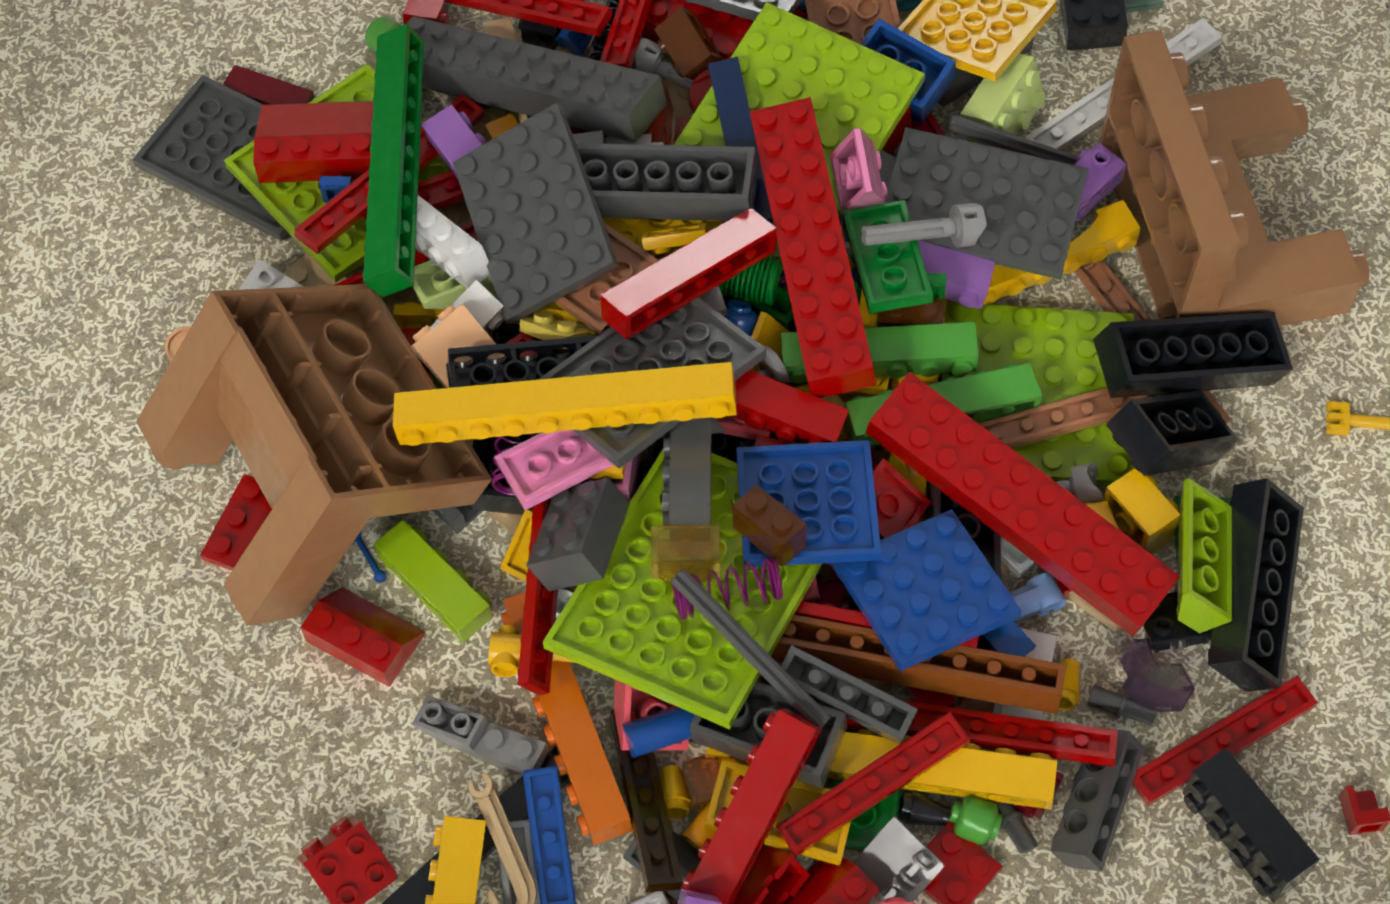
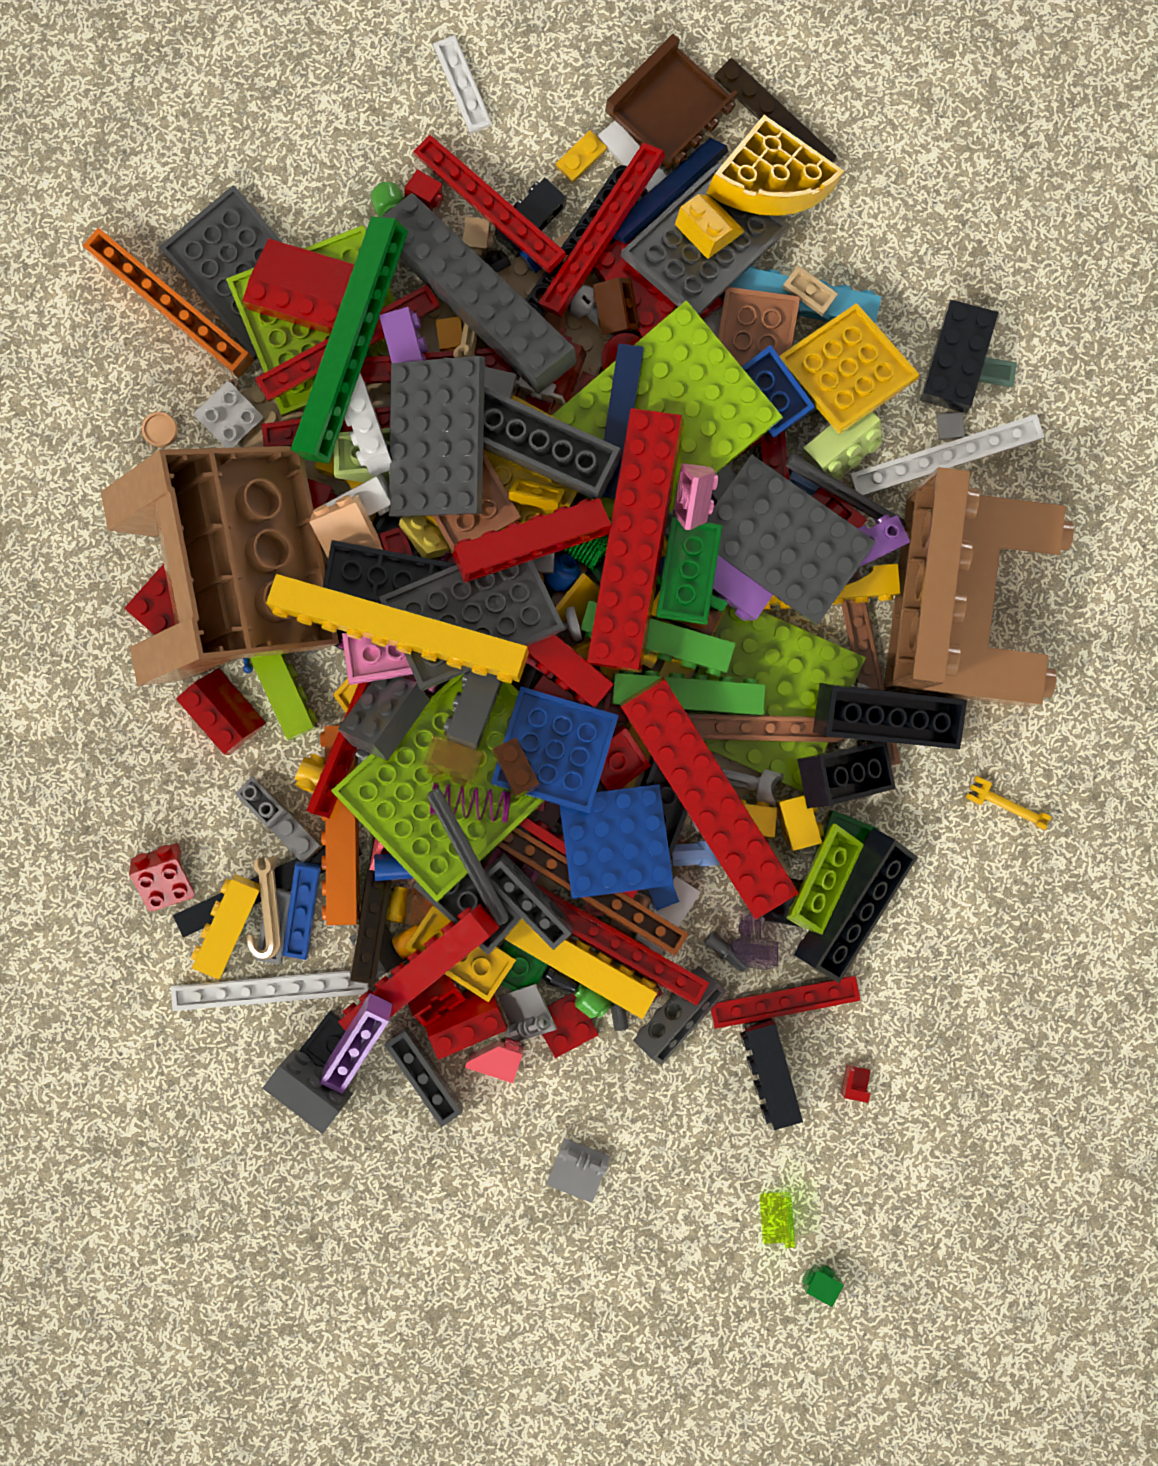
camera: 20 degrees right, 25 degrees up
(162, 208) = (168, 303): none -> orange brick
(266, 88) = (282, 216): dark red tile -> none
(332, 185) = (301, 341): blue tile -> none
(872, 784) = (526, 962): red tile -> none
(961, 229) = (730, 563): light grey piece -> none
(1071, 685) = (695, 923): yellow cone -> none
(1107, 61) = (950, 426): none -> light grey tile

